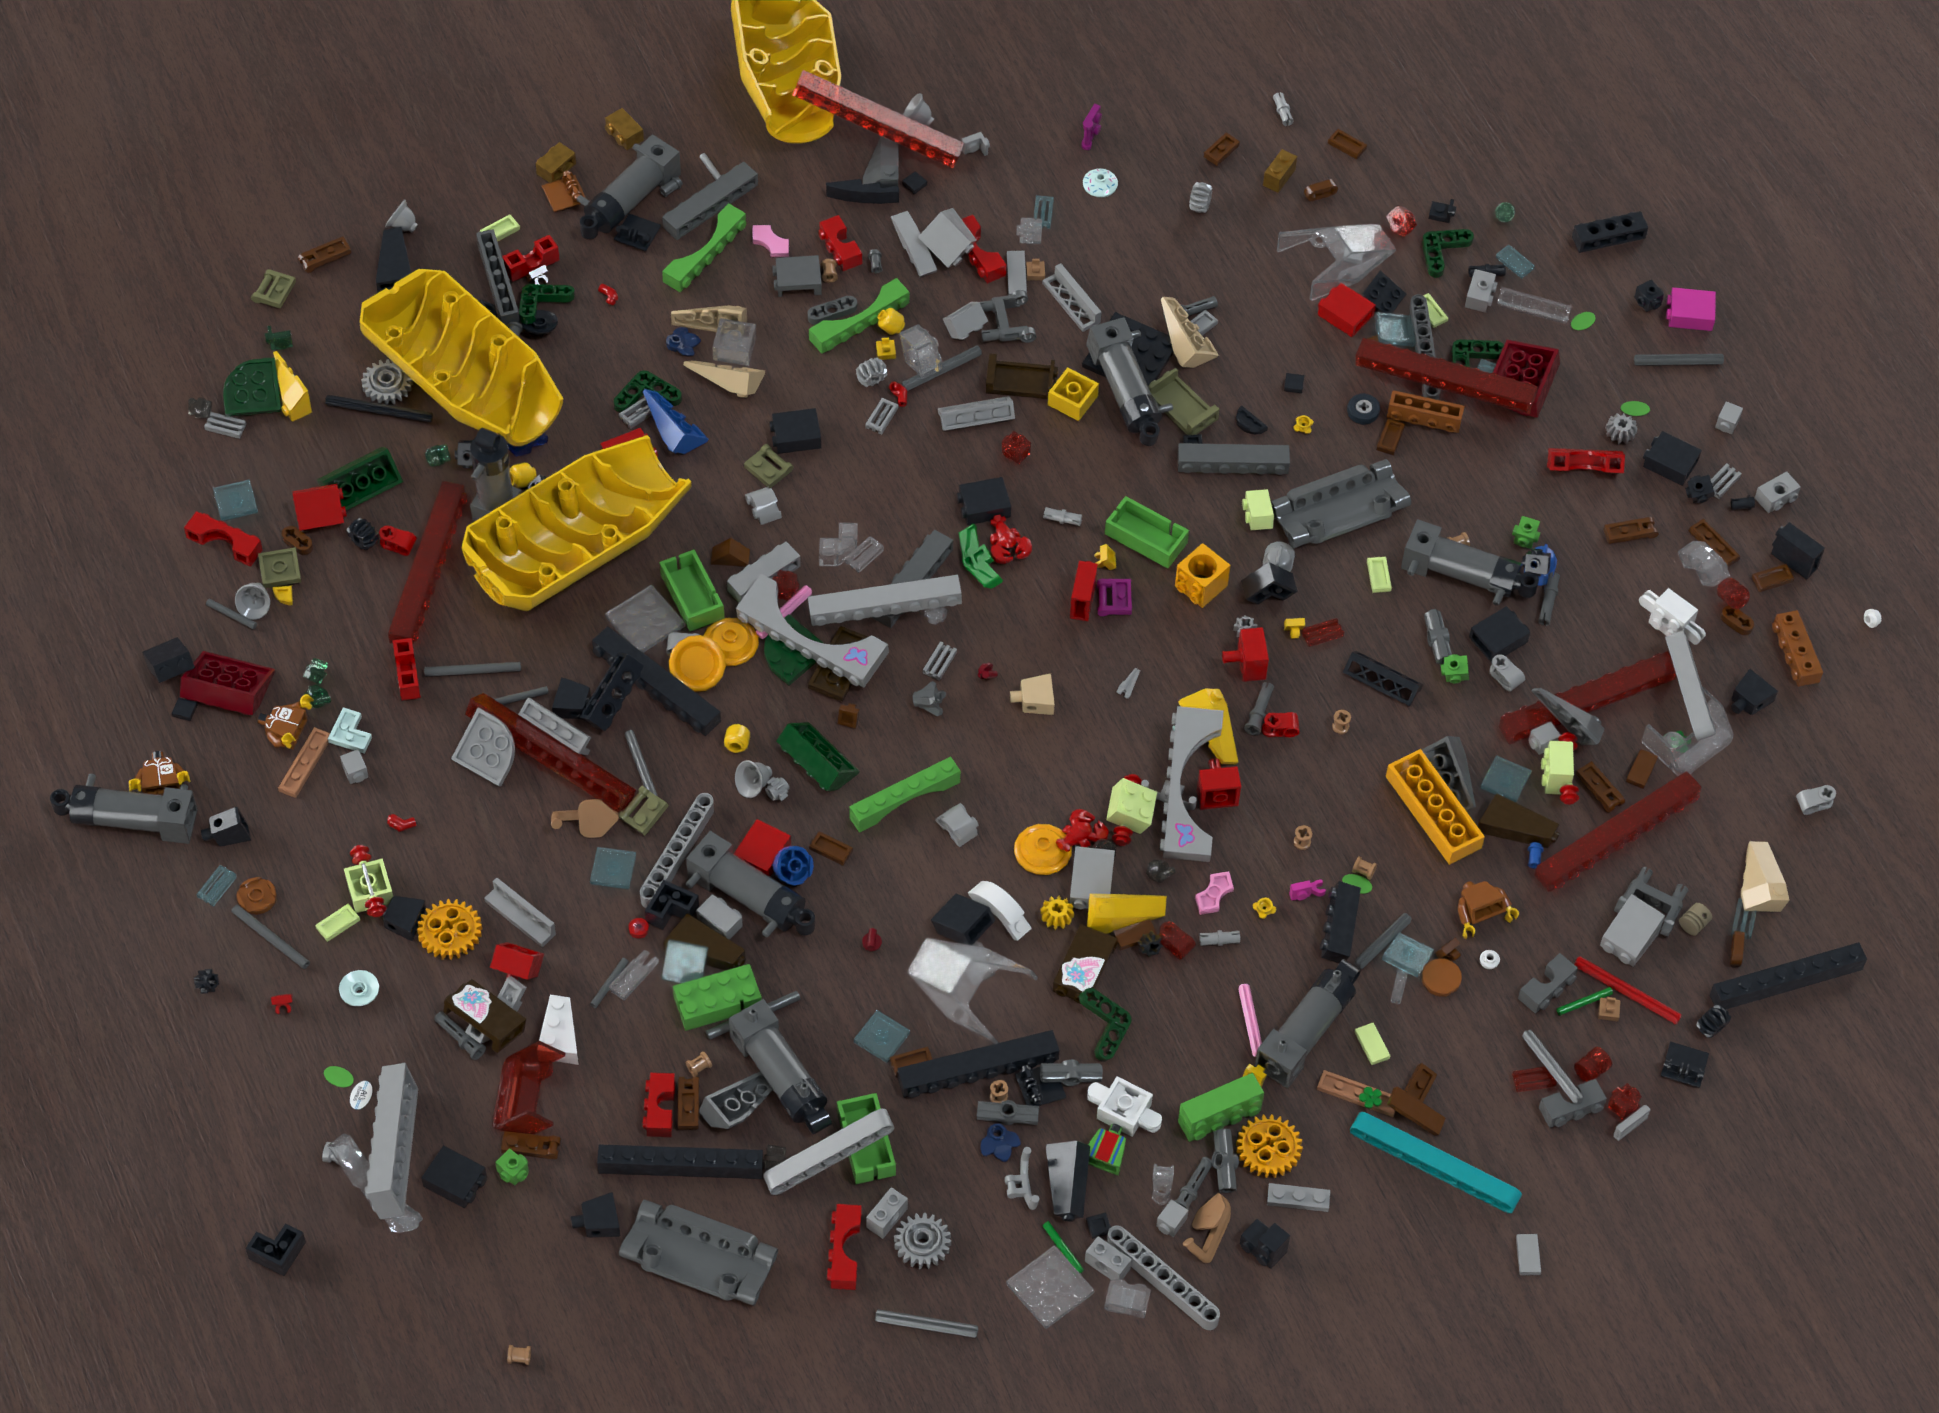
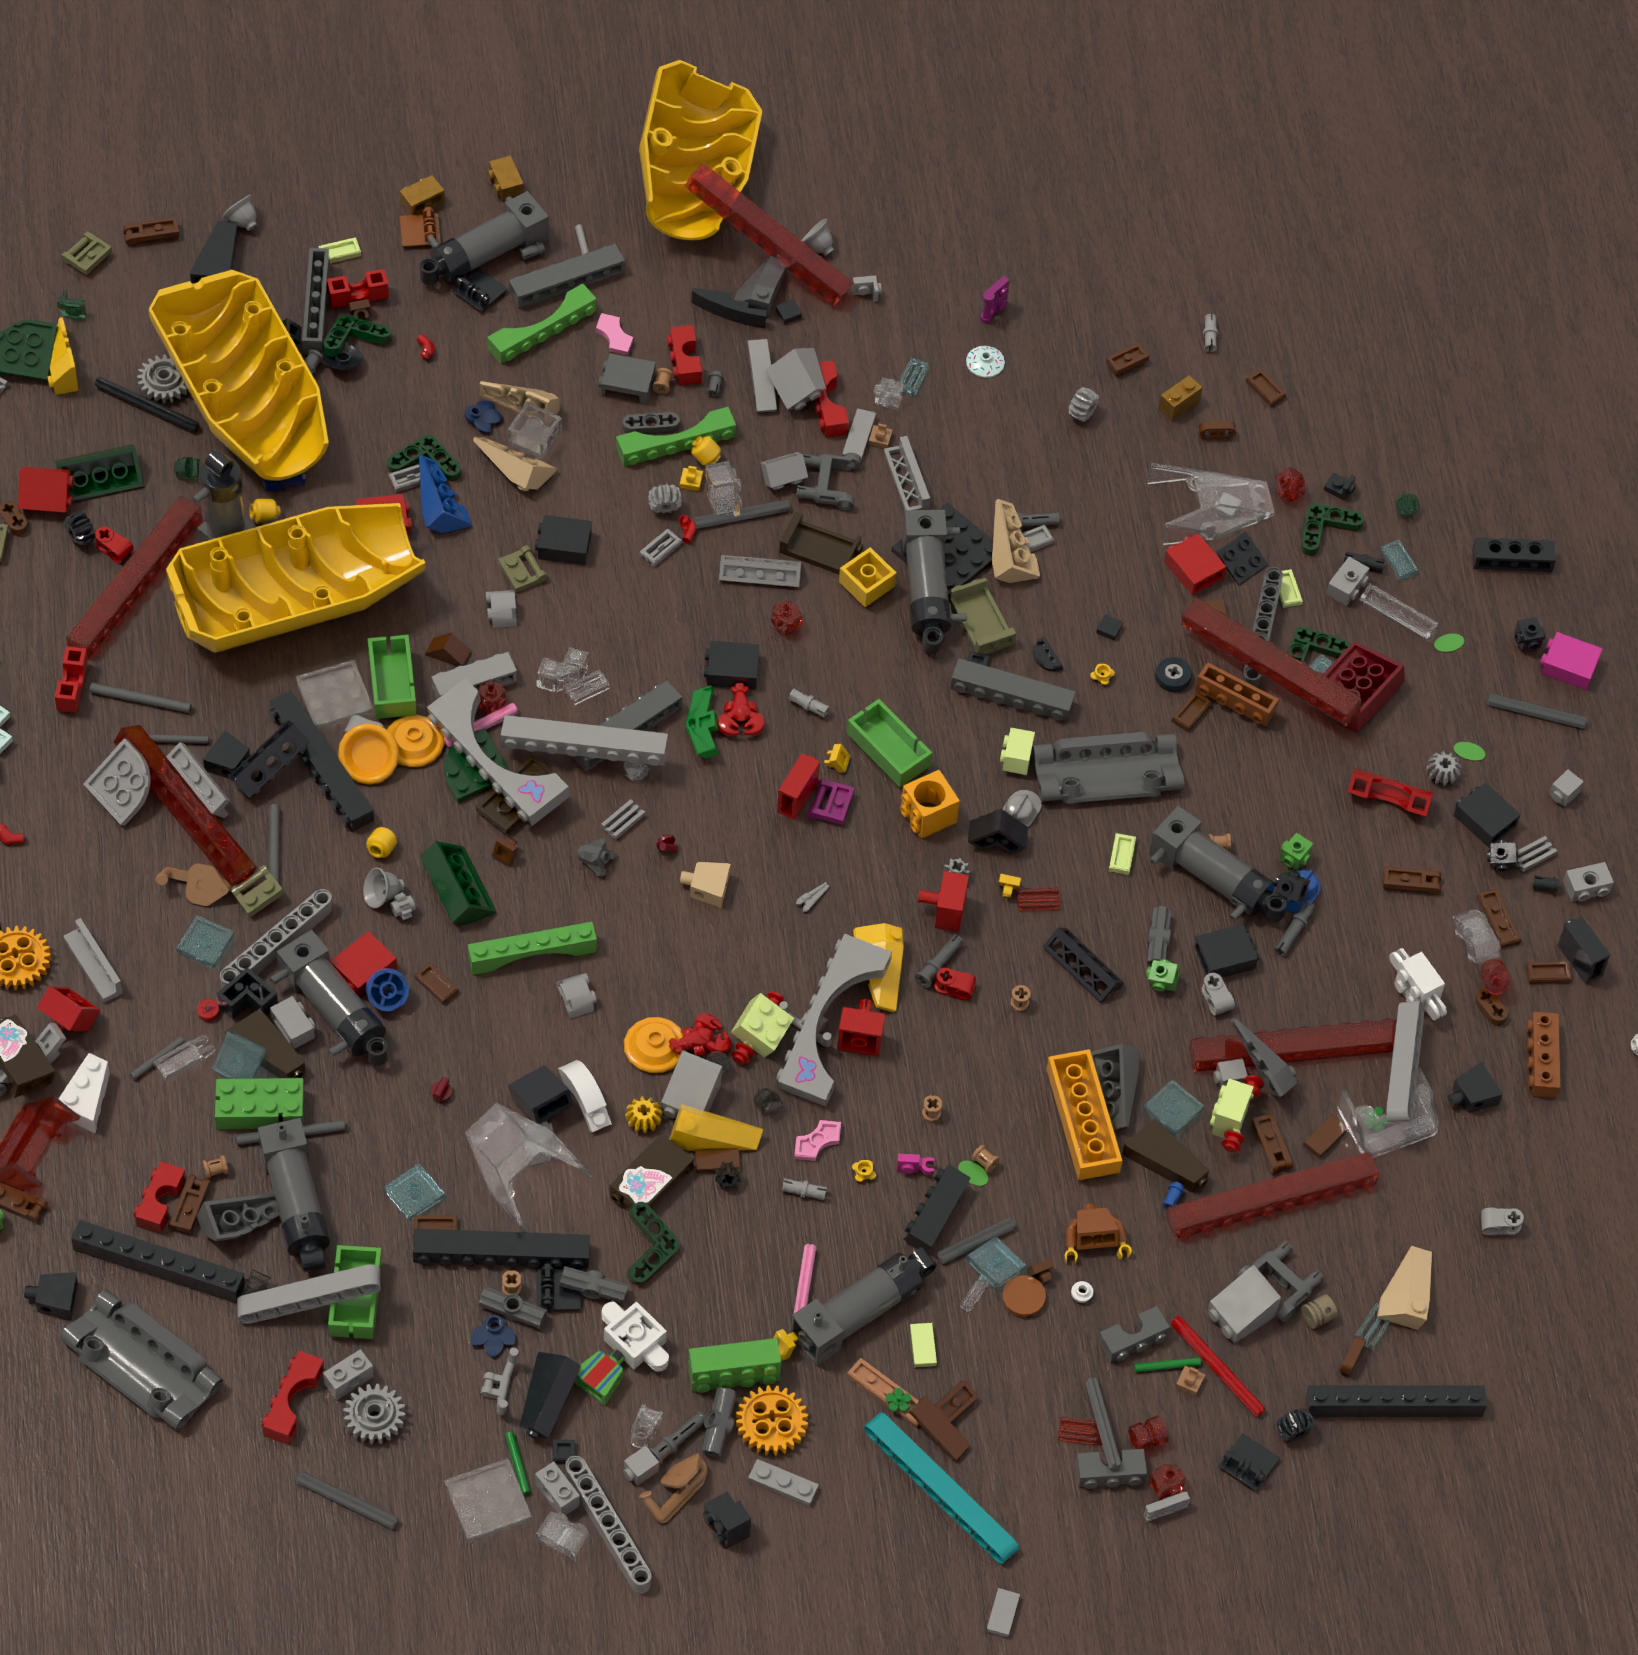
camera: 15 degrees right, 0 degrees up
(1176, 940) = (756, 1178): clear red piece -> none
(1394, 329) = (1238, 598): clear light blue plate -> none

